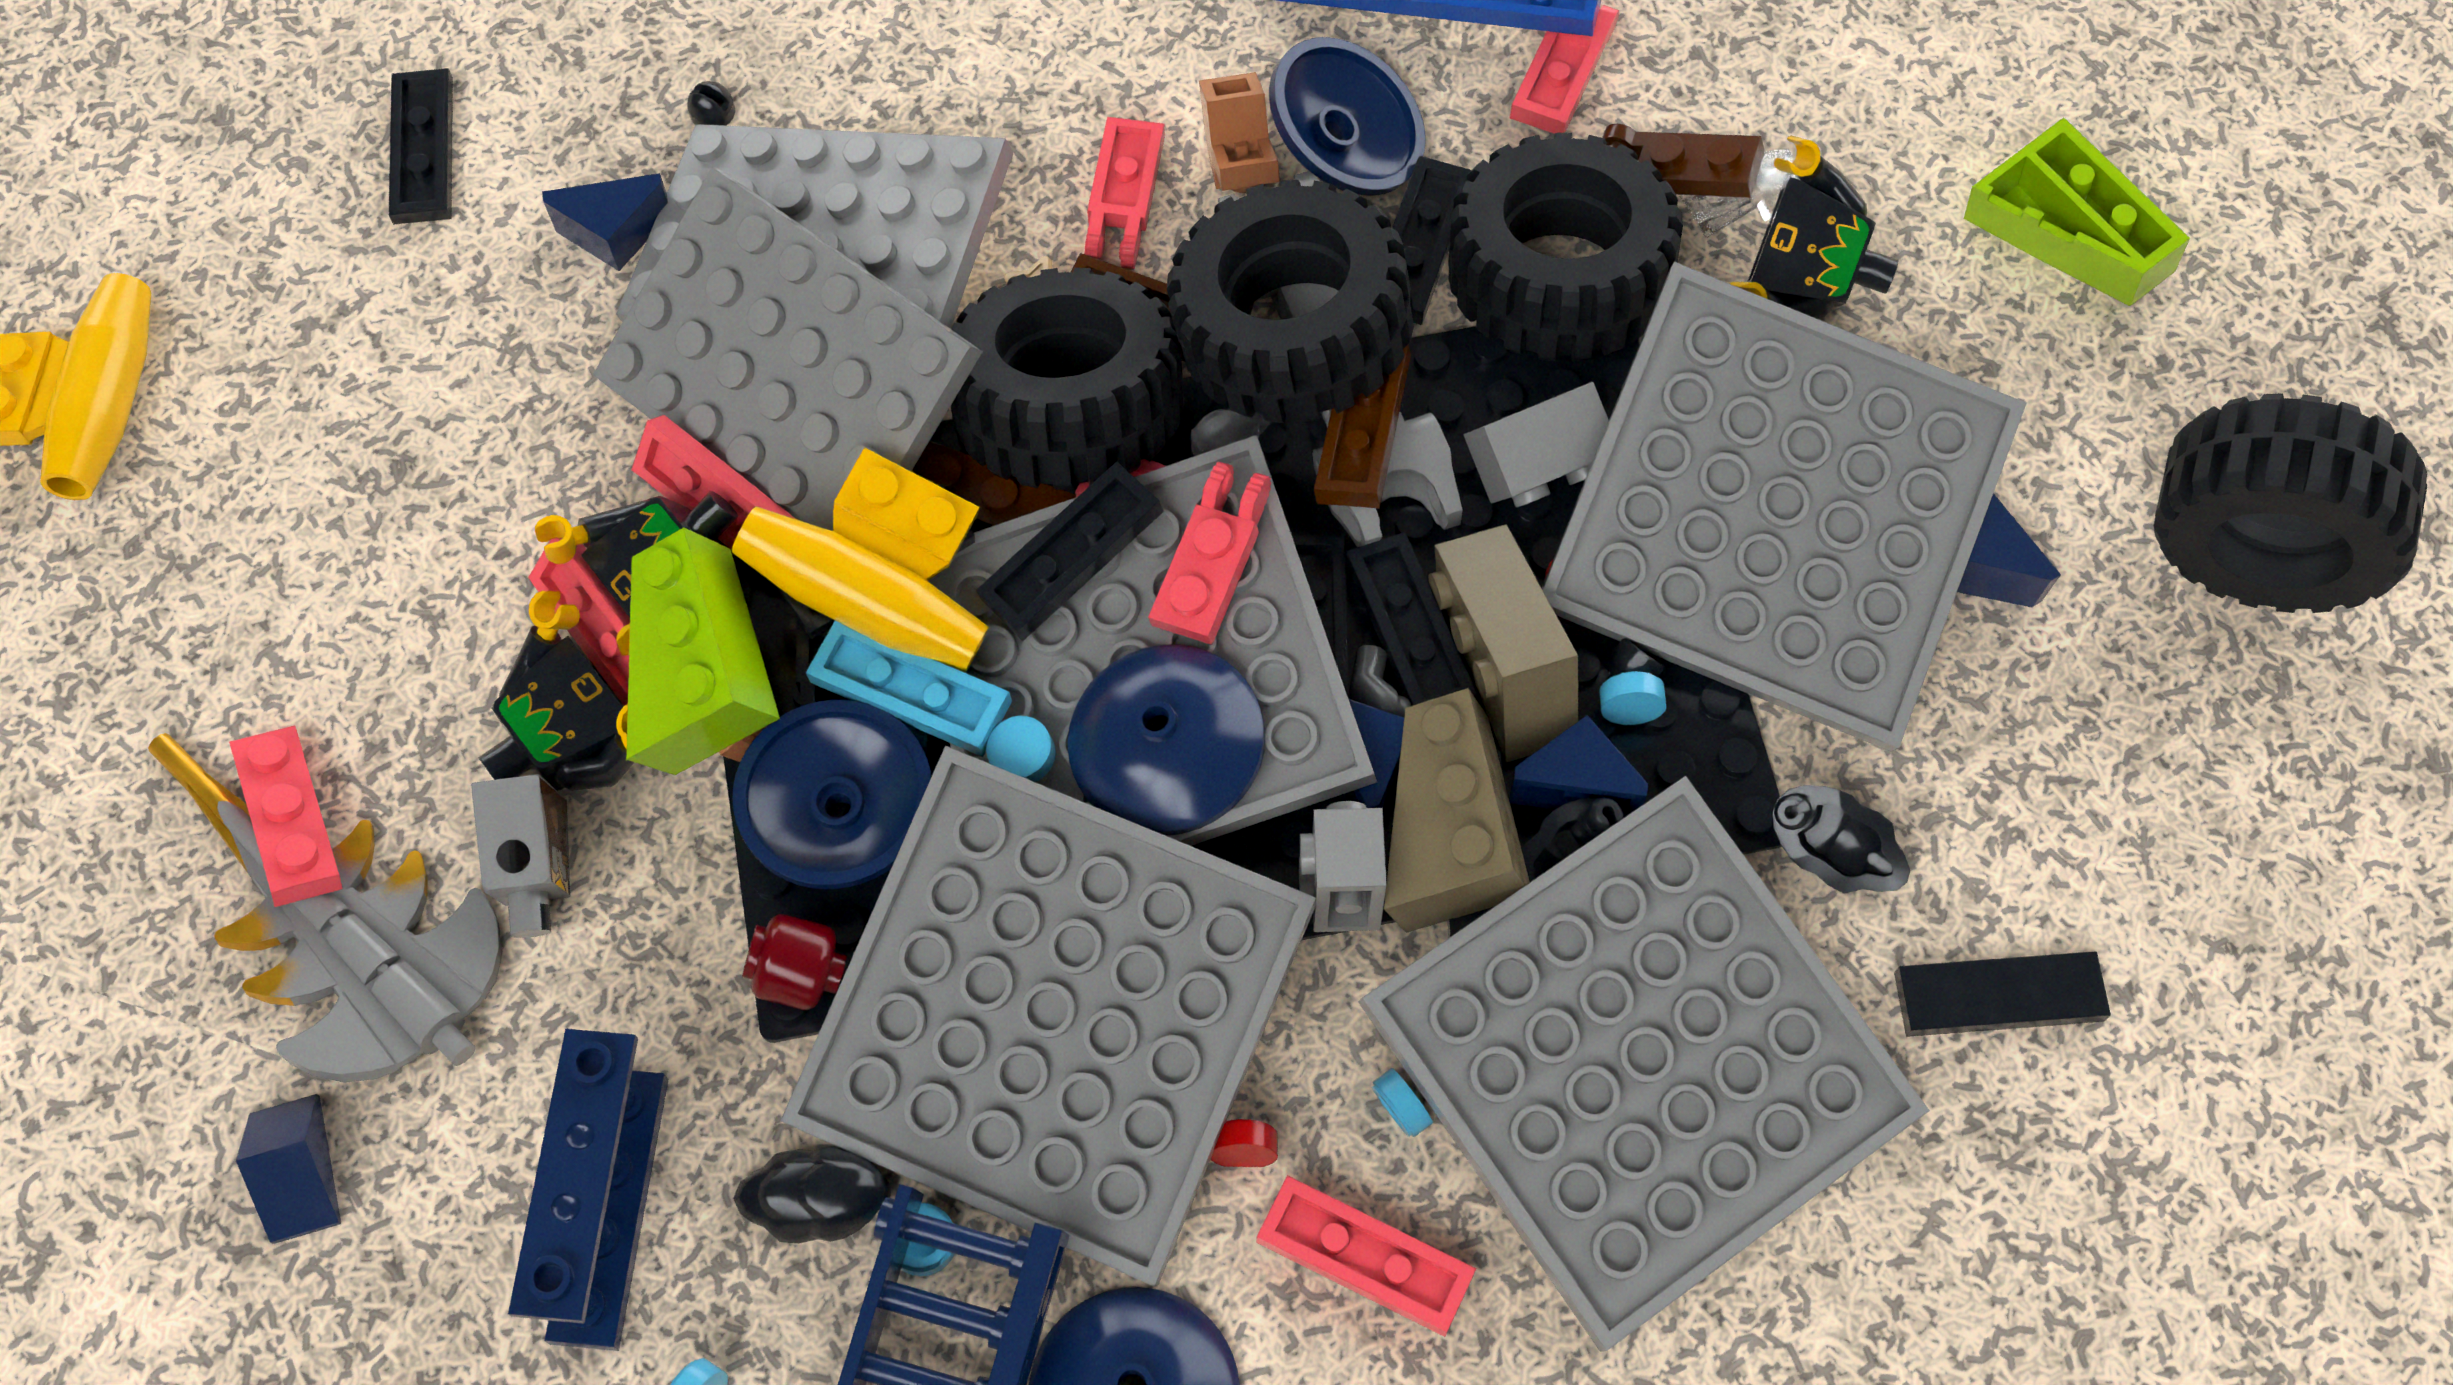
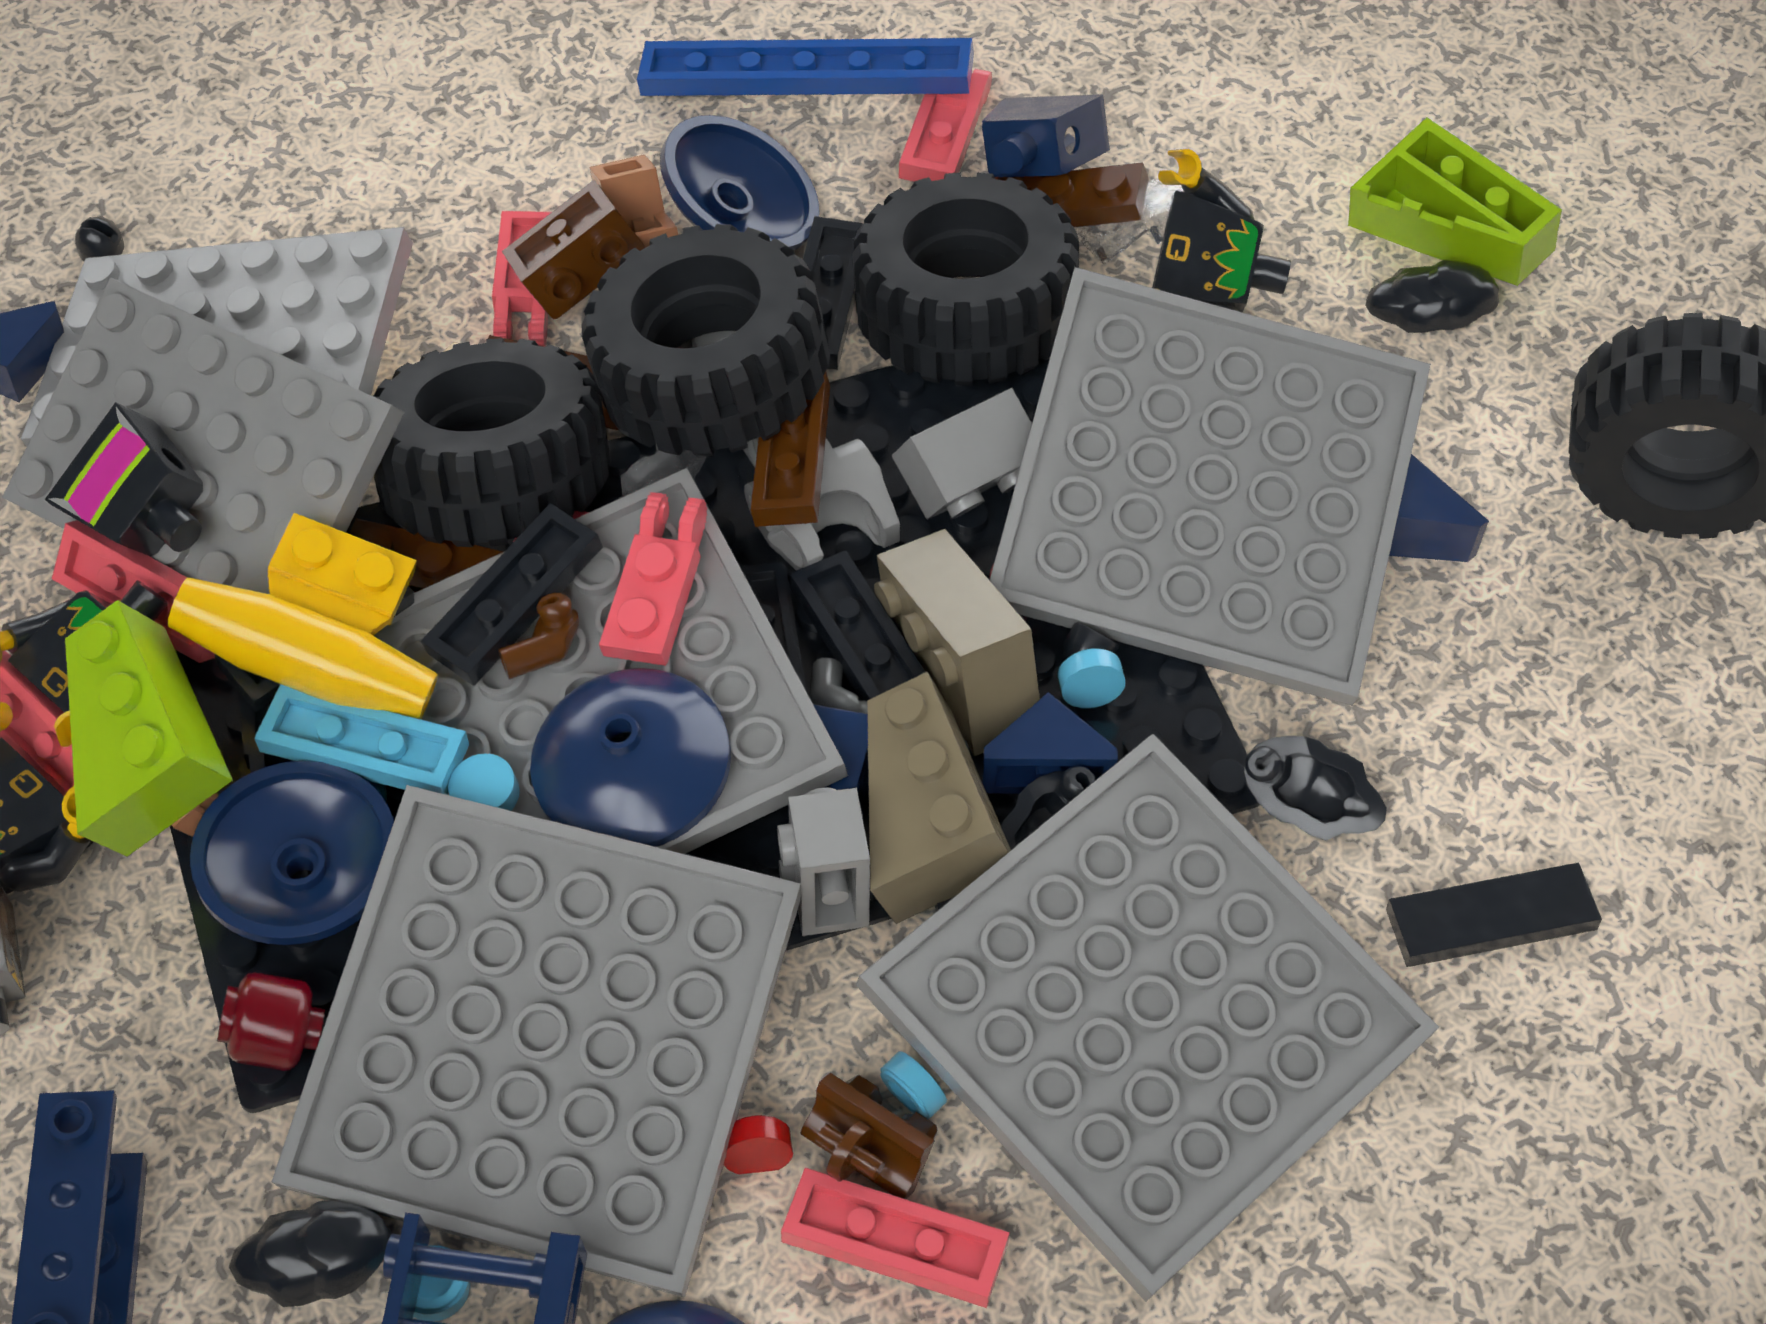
camera: 10 degrees left, 10 degrees down
(712, 392) = (131, 485): none -> black torso
(1100, 604) = (549, 640): none -> reddish brown arm
(1172, 173) = (571, 250): none -> reddish brown bracket
(1350, 1152) = (867, 1136): none -> reddish brown hips
(1651, 93) = (1029, 135): none -> dark blue torso
(2041, 311) = (1434, 297): none -> black arm

